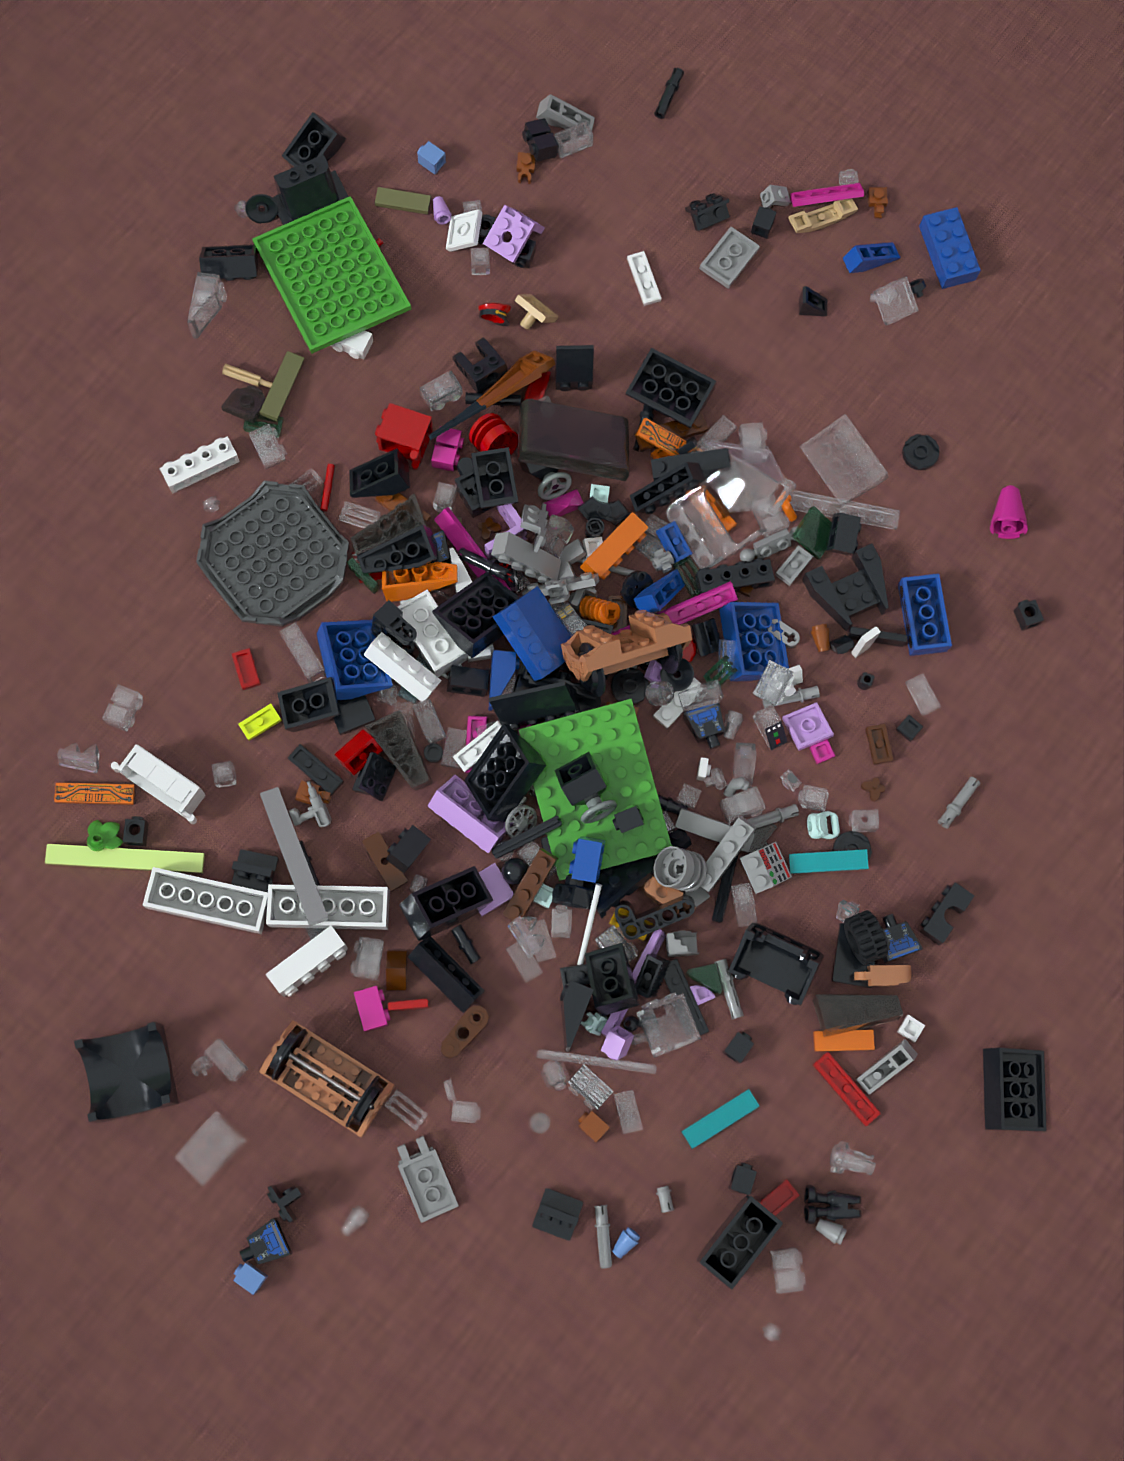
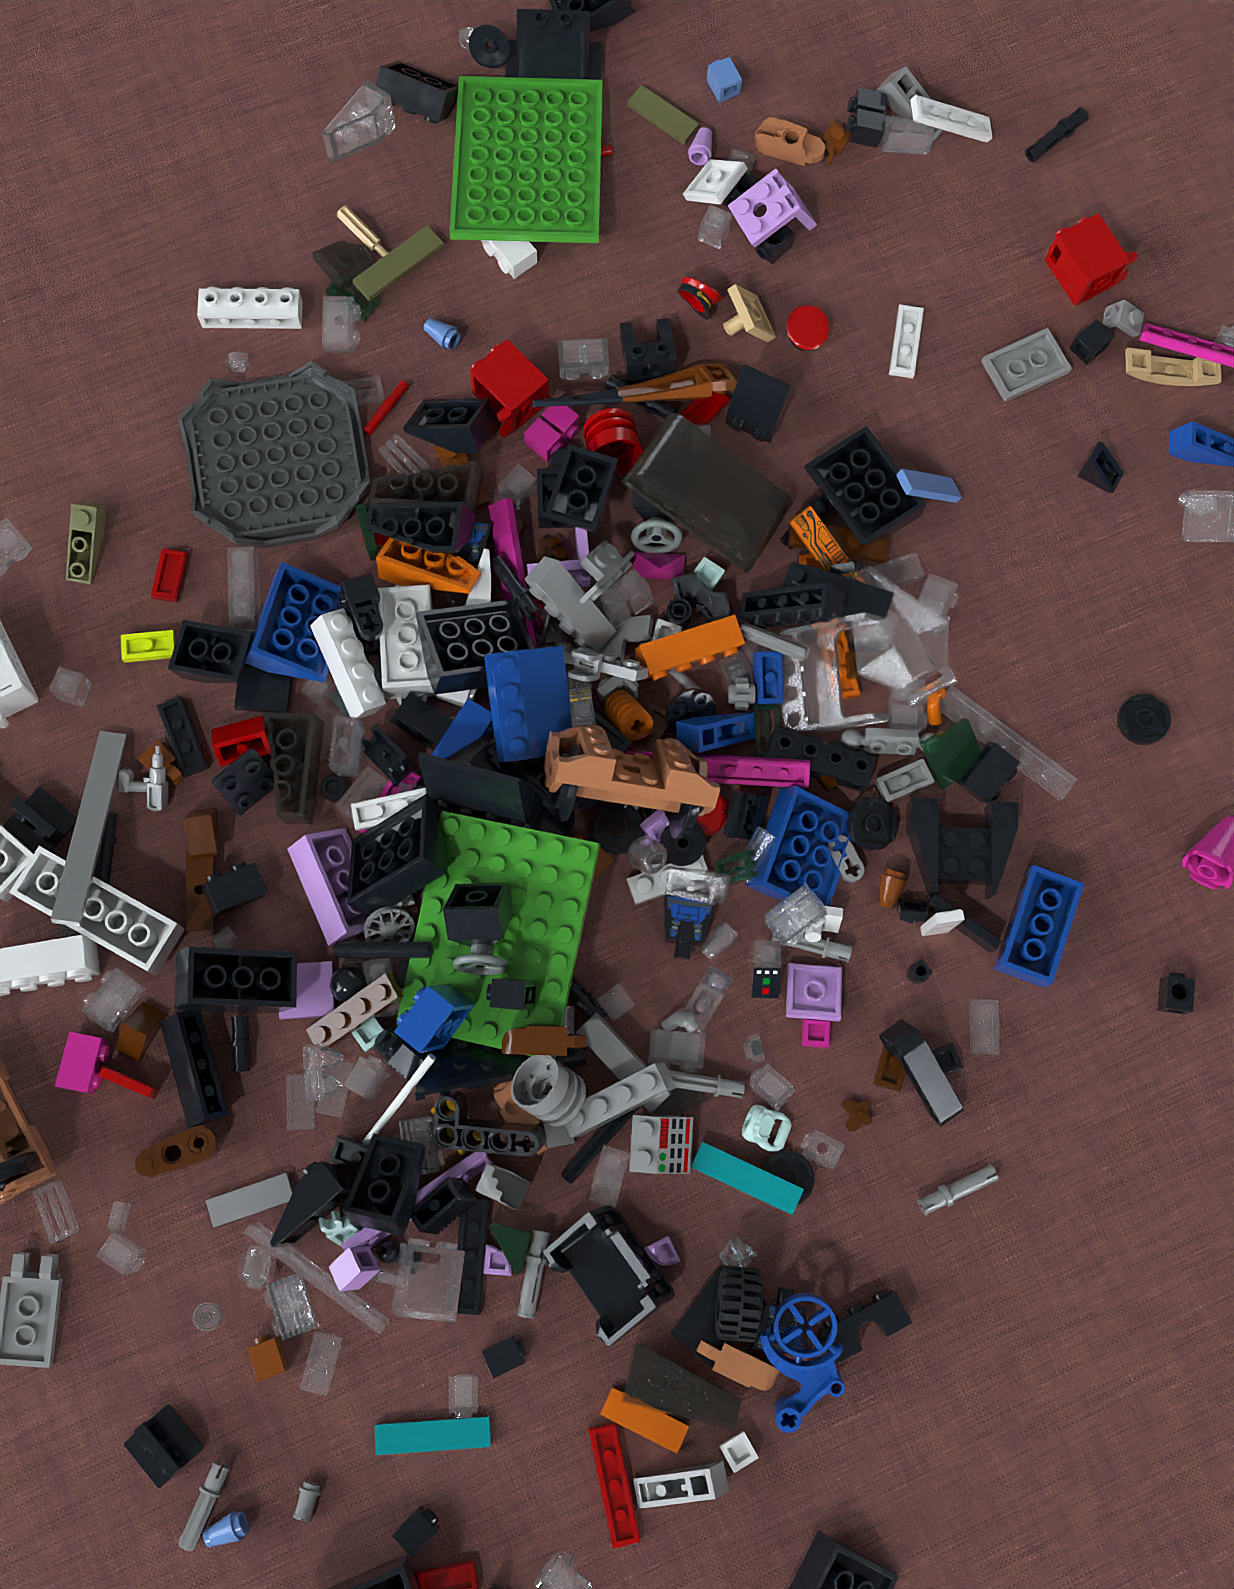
camera: 30 degrees right, 0 degrees up
(177, 674) = (85, 540): none -> olive slope
(338, 419) = (444, 334): none -> medium blue cone
(366, 823) = (202, 832): none -> reddish brown slope
(458, 714) = (387, 756): none -> black hinge
(485, 180) = (774, 140): none -> nougat piece
(526, 1037) = (249, 1200): none -> light grey tile
(576, 300) = (807, 327): none -> red piece
(597, 115) = (951, 118): none -> white tile
(661, 839) = (541, 1040): none -> reddish brown piece
(667, 517) = (774, 642): none -> light grey axle
(703, 769) = (652, 978): white plate -> none
(708, 211) = (1029, 297): black bracket -> none
(711, 367) = (928, 485): none -> medium blue tile
(717, 779) = (661, 999): clear tile -> none
(726, 1083) = (464, 1395): none -> clear brick
(733, 168) = (1087, 259): none -> red container
(788, 603) = (872, 824): none -> black tile
(801, 933) = (663, 1252): none -> lavender tile
(844, 460) = (1037, 682): clear slope -> none
(901, 739) = (923, 1071): none -> beam
(934, 957) = (816, 1375): none -> blue piece

